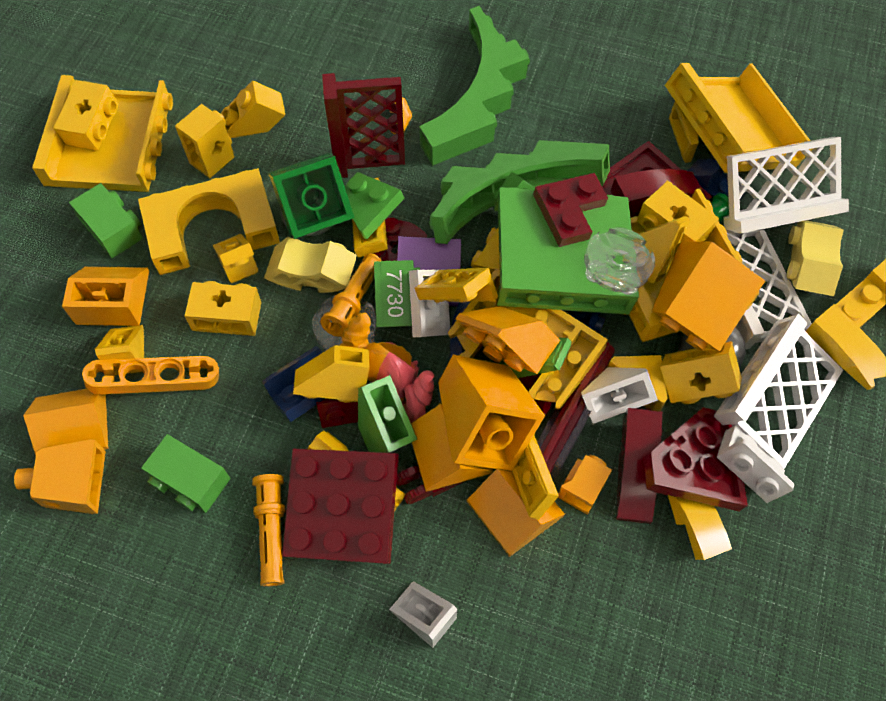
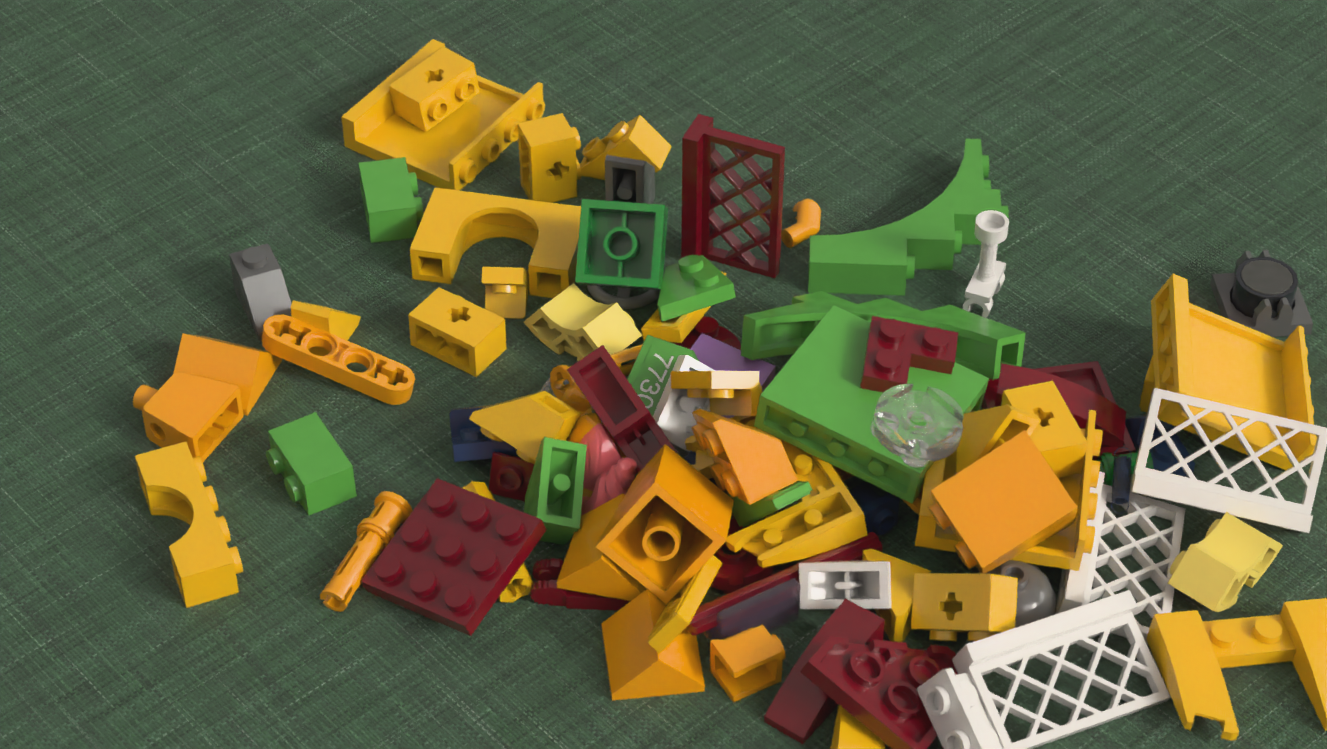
camera: 30 degrees right, 20 degrees down
(58, 340) = (259, 285): none -> dark grey slope
(106, 295) = (338, 270): light orange slope -> none
(154, 603) = (201, 557): none -> yellow arch
(274, 141) = (629, 180): none -> dark grey slope
(400, 336) = (619, 407): none -> dark red slope
(424, 613) = (478, 703): white slope -> none
(542, 105) = (987, 280): none -> white bar
(707, 50) = (1262, 296): none -> piece
(724, 220) = (1121, 480): none -> dark blue piece

